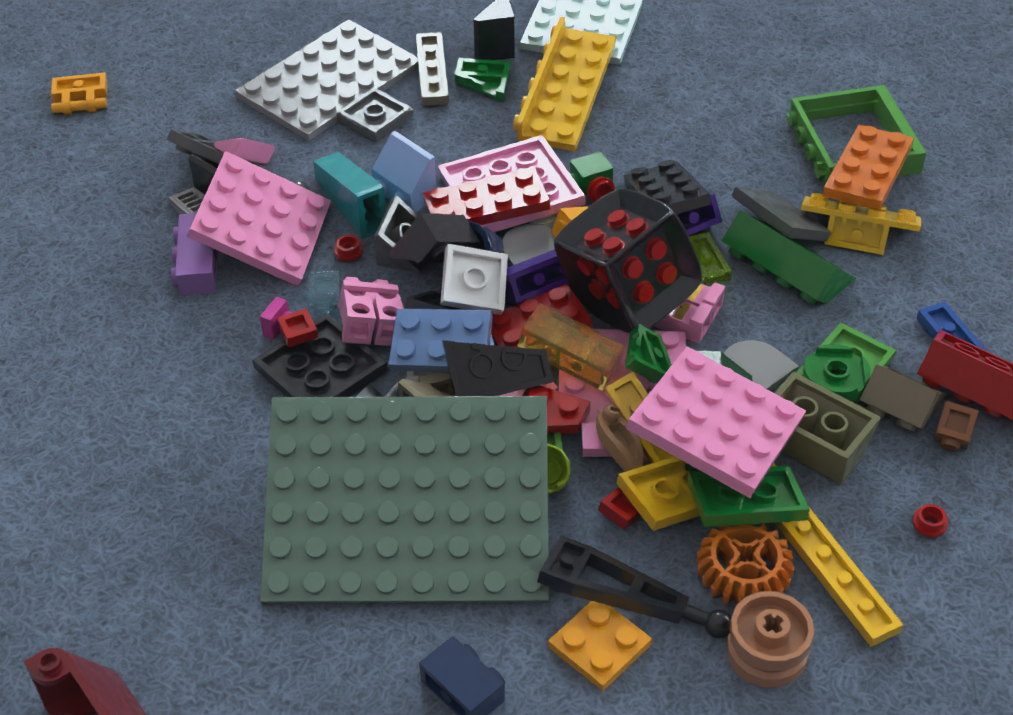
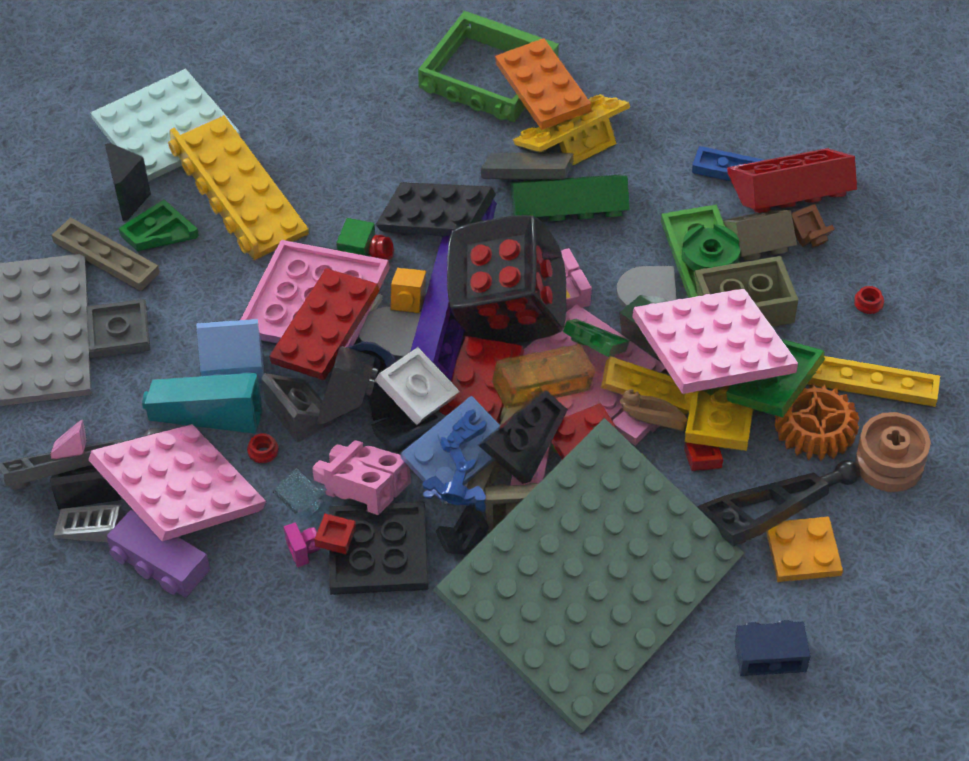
camera: 50 degrees left, 5 degrees up
(447, 326) = (455, 491): none -> blue piece

